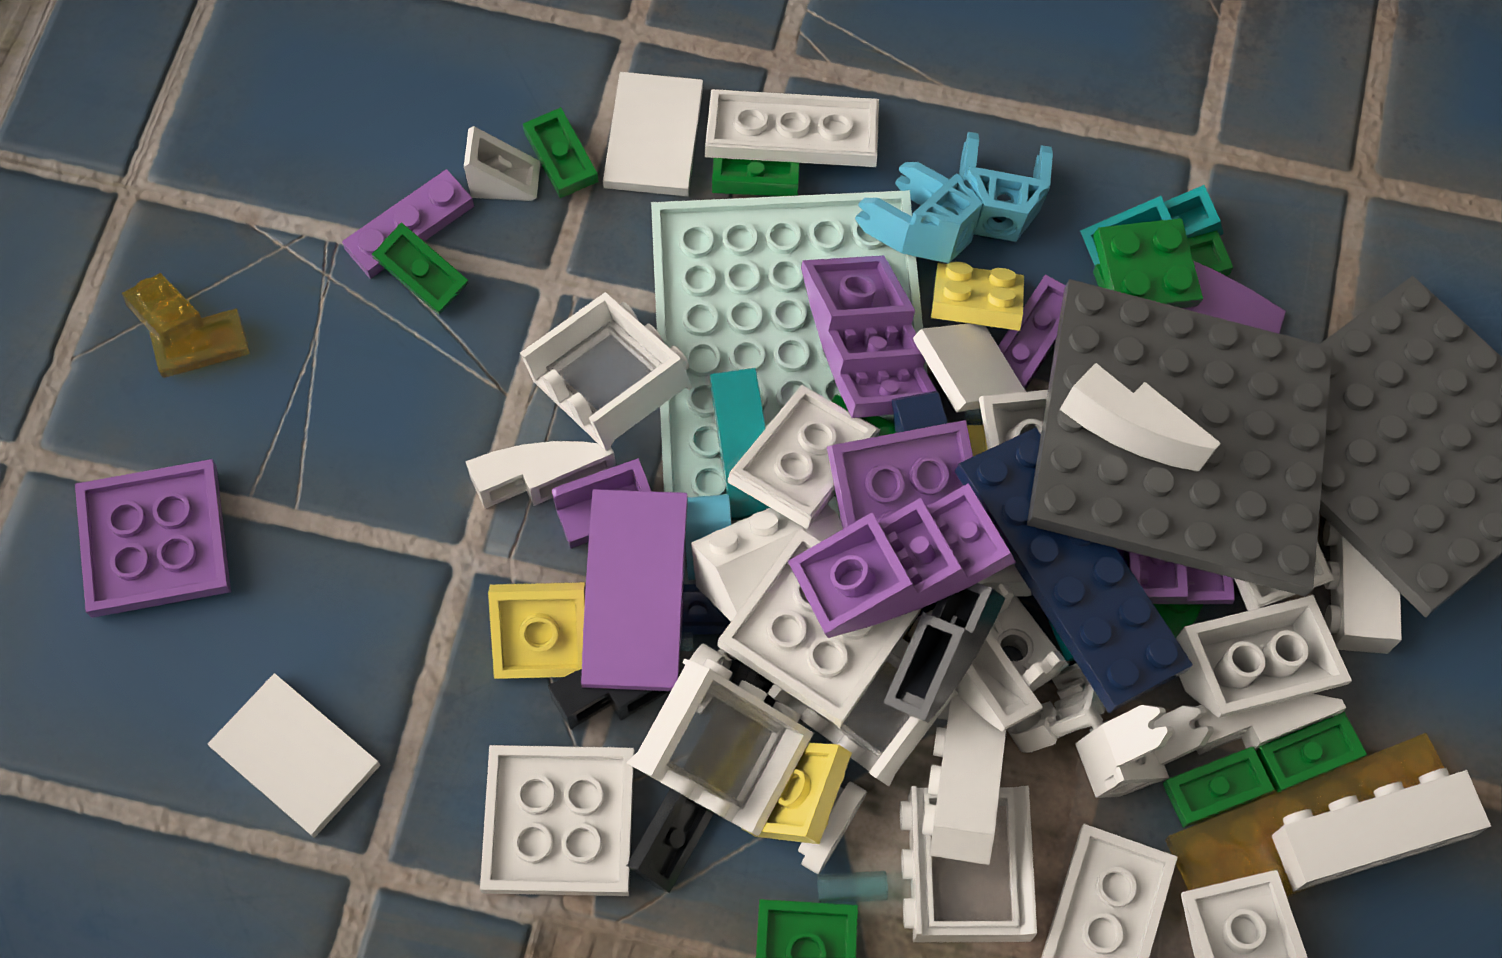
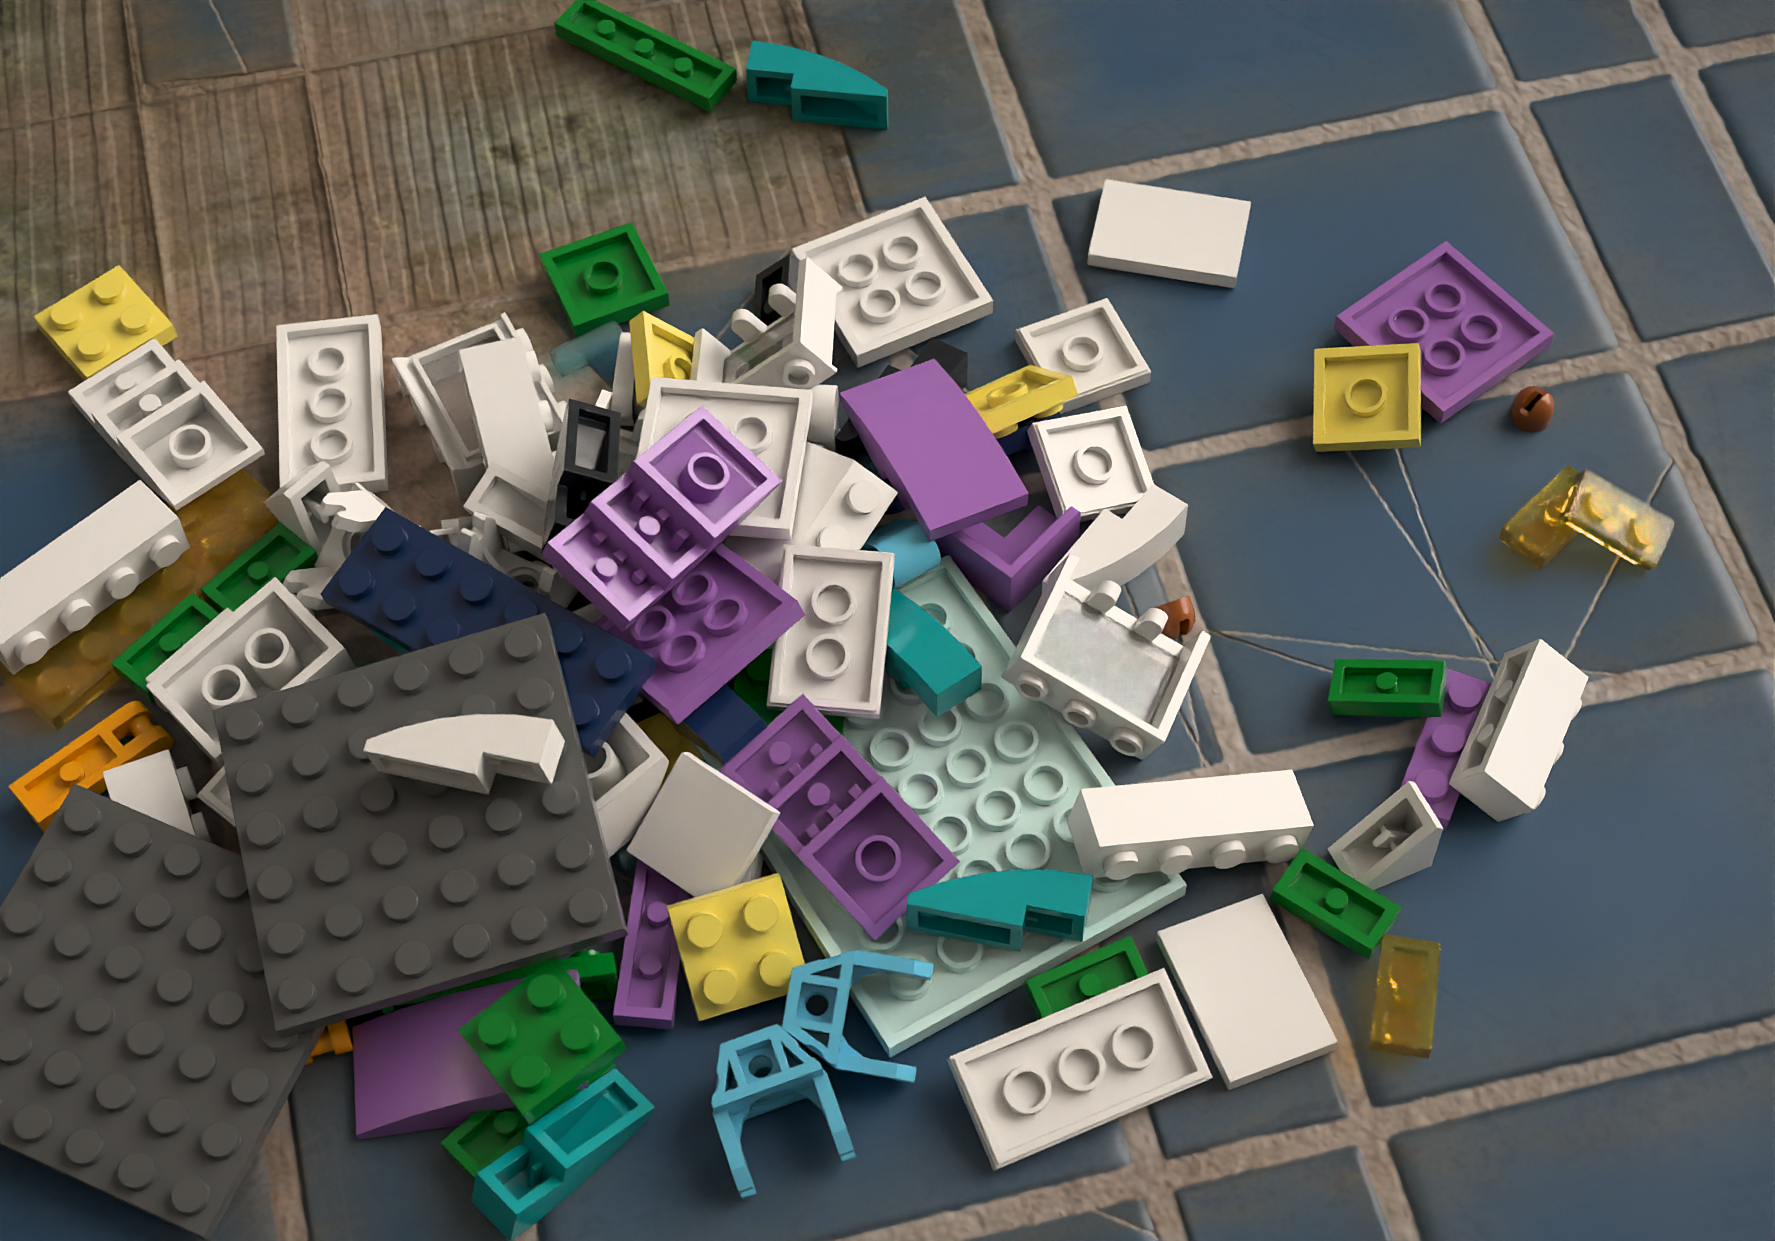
camera: 155 degrees right, 10 degrees down
(140, 449) = (1540, 415): none -> dark orange hinge
(260, 496) = (1367, 397): none -> light yellow plate
(357, 192) = (1519, 731): none -> white brick
(444, 671) = (1090, 348): none -> white tile
(508, 544) = (1091, 462): none -> white tile
(519, 404) = (1180, 617): none -> dark orange hinge
(558, 77) = (1405, 996): none -> clear yellow plate
(627, 225) = (1189, 824): none -> white brick
(786, 223) = (1002, 906): none -> teal slope
(1163, 818) = (298, 504): none -> white slope
(1407, 676) = (86, 758): none -> light orange plate

